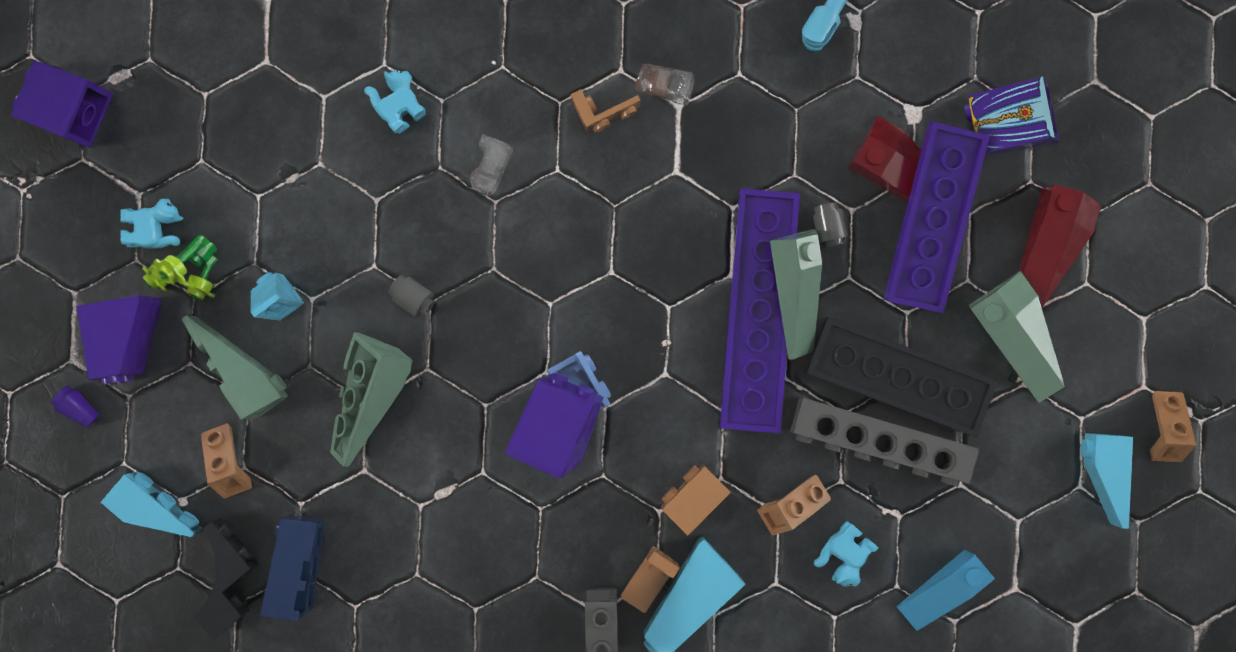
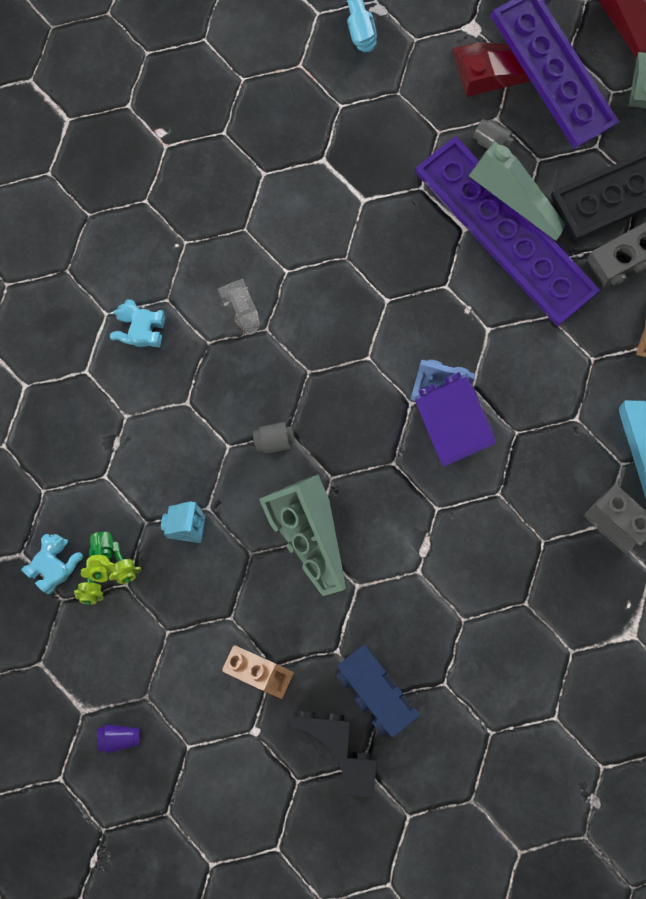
camera: 40 degrees left, 10 degrees down
(118, 336) = (102, 653): dark purple slope -> none
(141, 504) = (230, 758): medium azure slope -> none
(247, 383) = (219, 598): sand green wedge -> none
(585, 108) = (268, 215): medium nougat bracket -> none
(649, 579) = (616, 461): medium nougat bracket -> none
(665, 83) = (301, 151): clear leg -> none
(694, 498) = (590, 384): medium nougat brick -> none

